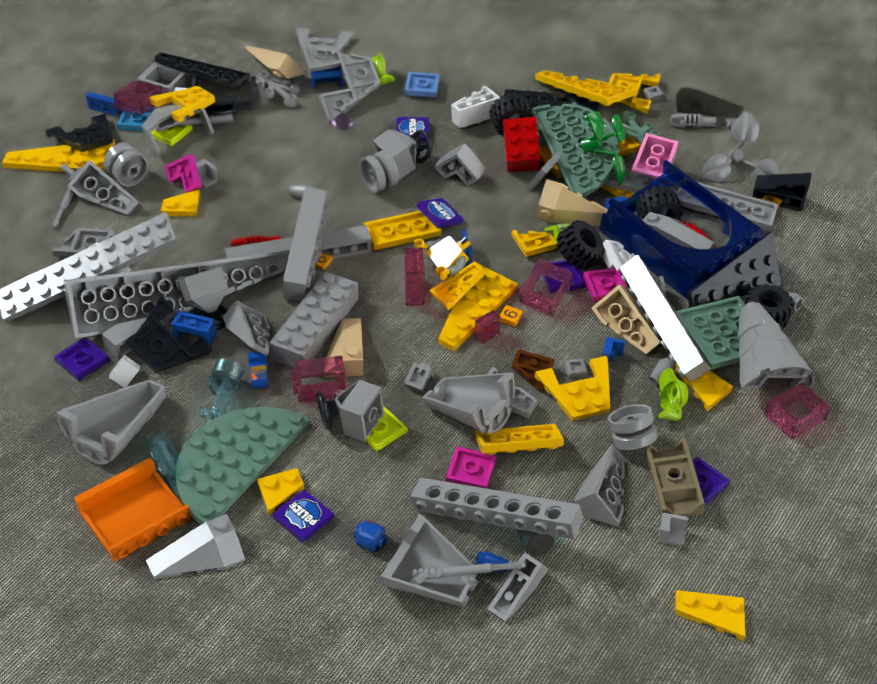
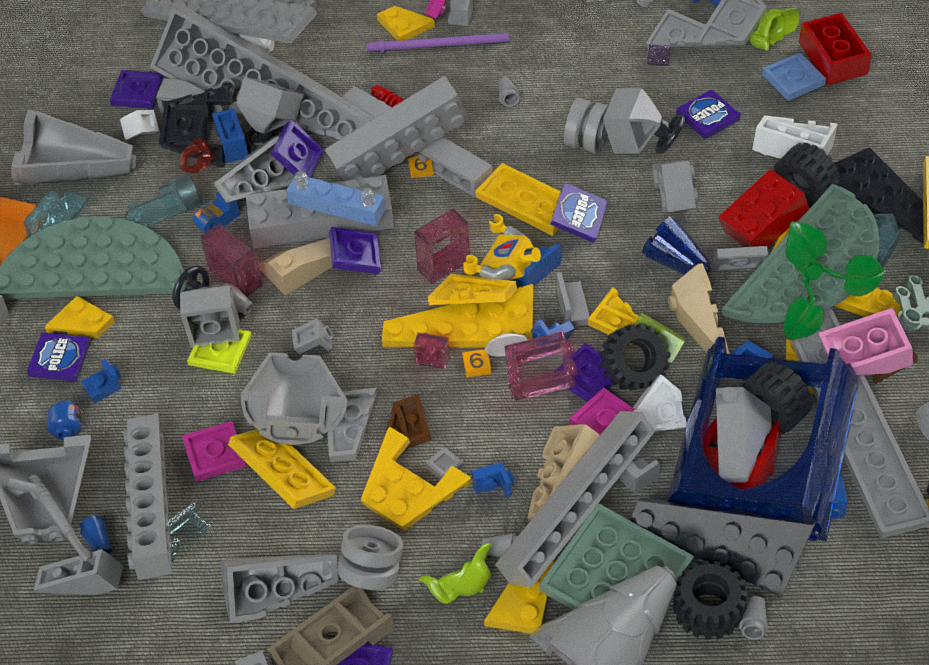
camera: 60 degrees right, 5 degrees up
(193, 223) = (437, 42): none -> medium lavender bar
(201, 350) = (198, 146): none -> clear red piece
(252, 302) = (297, 150): none -> dark purple tile
(330, 298) = (336, 199): none -> medium blue piece
(352, 500) = (103, 382): none -> blue bracket
(366, 321) = (354, 250): none -> dark purple tile
(422, 57) = (835, 48): none -> red brick
(502, 254) = (572, 301): none -> light grey panel
(510, 191) = (674, 248): none -> clear blue cone
(514, 291) = (496, 346): none -> white piece
(522, 271) = (540, 329): none -> blue bracket

